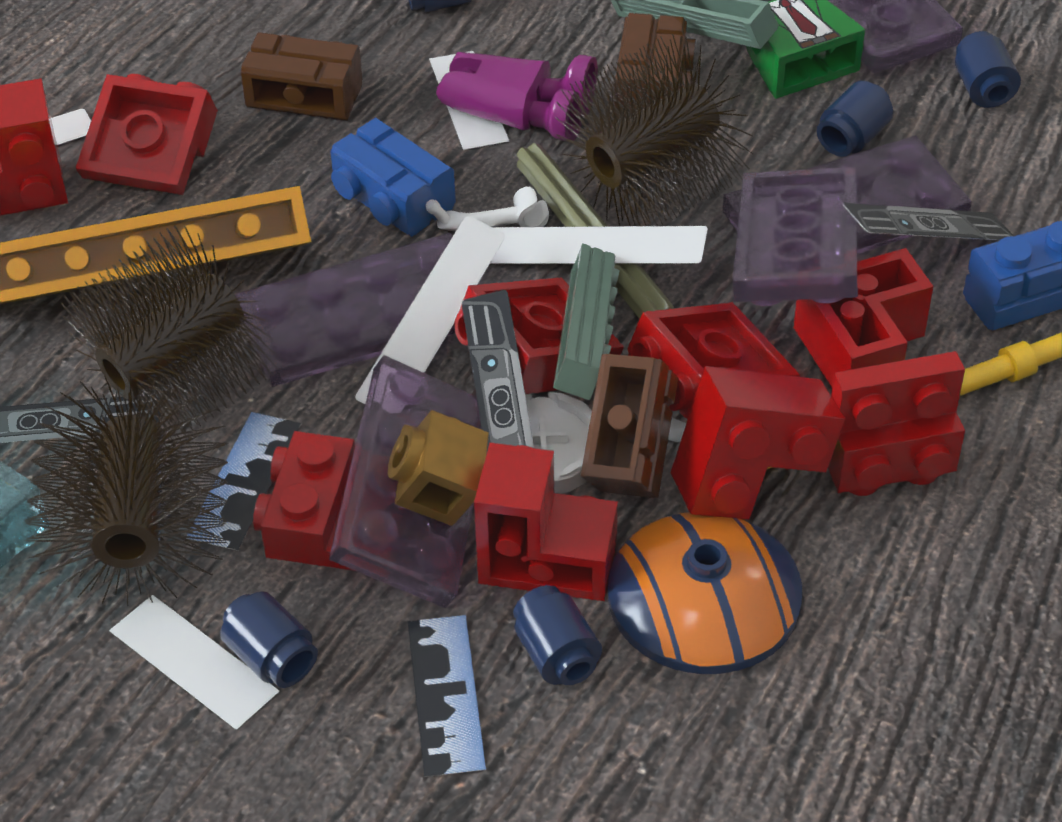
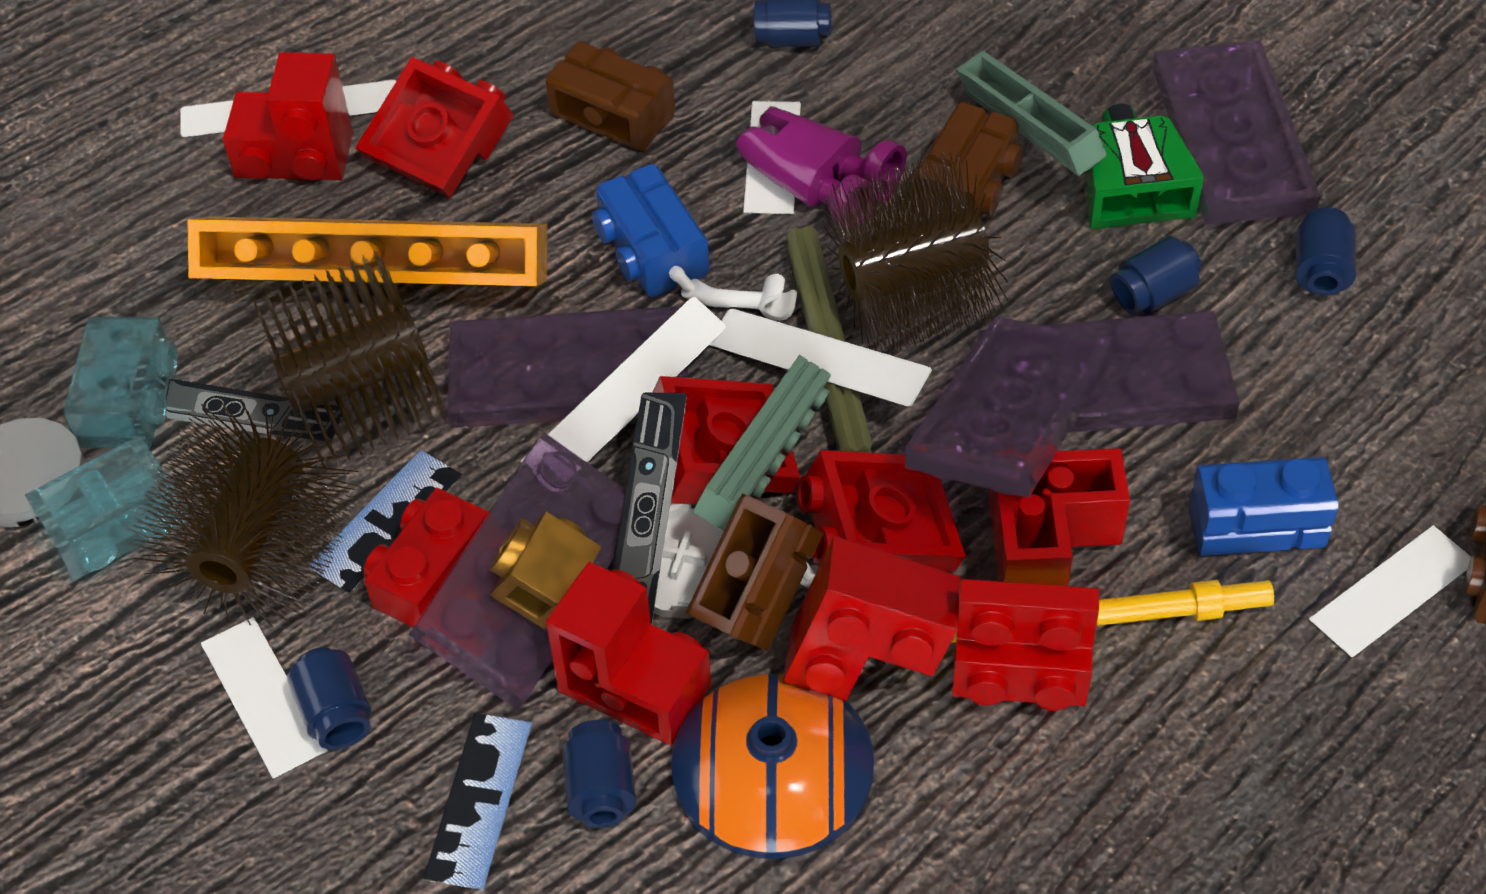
camera: 20 degrees right, 5 degrees up
(928, 222) = (1168, 421): sticker -> none

